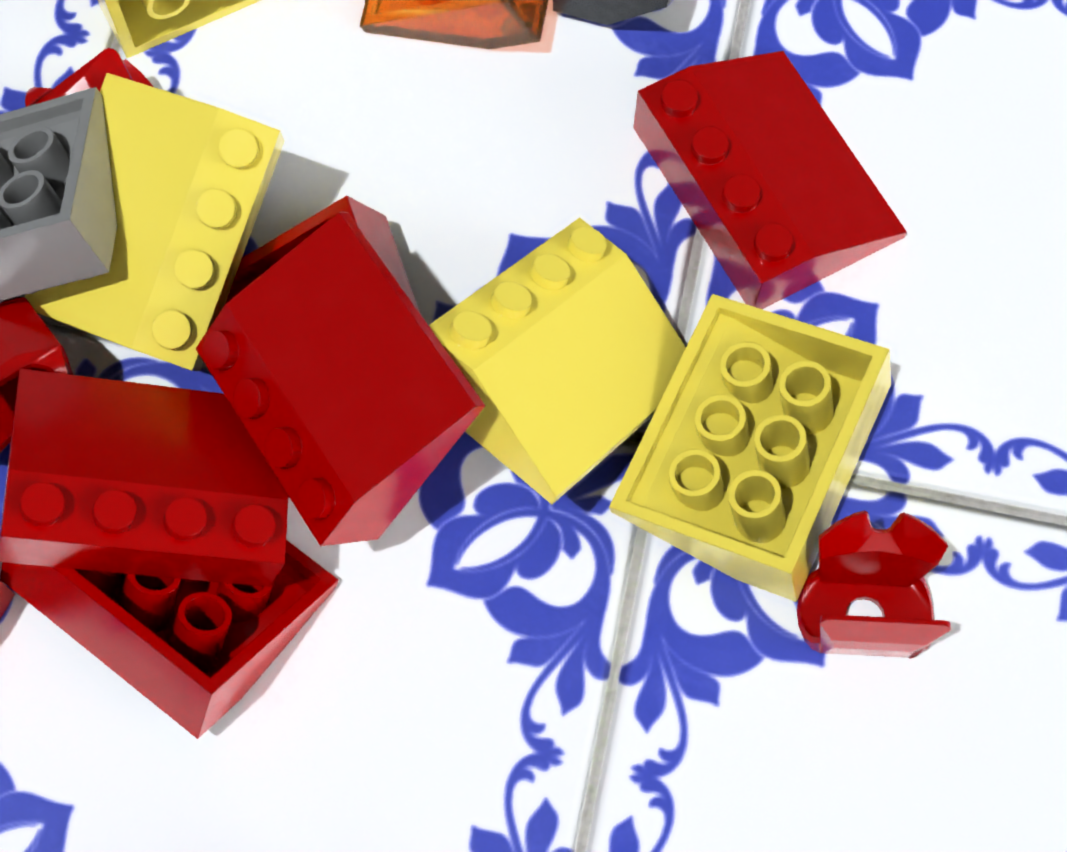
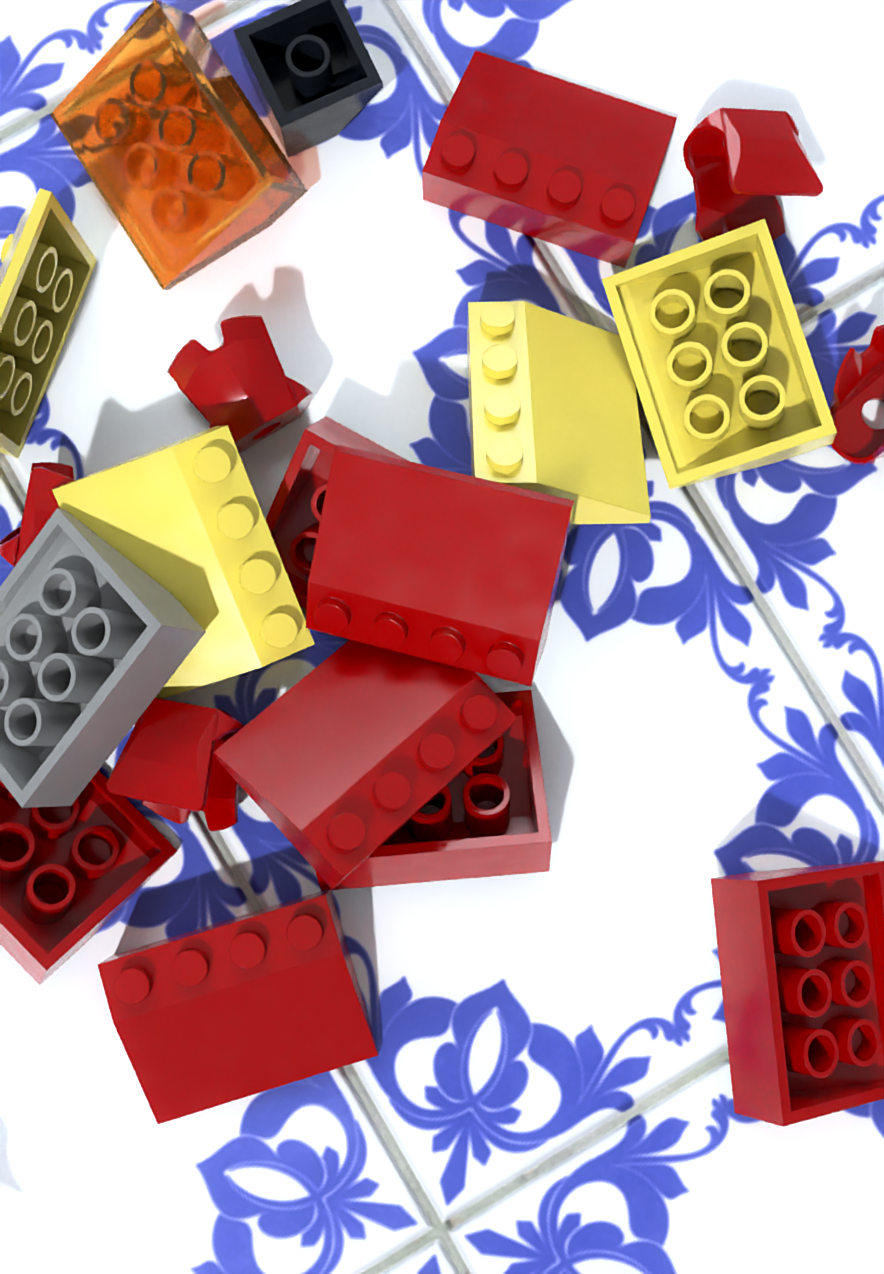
camera: 45 degrees left, 15 degrees up
(338, 133) = (240, 382): none -> red piece
(921, 308) = (740, 166): none -> red piece

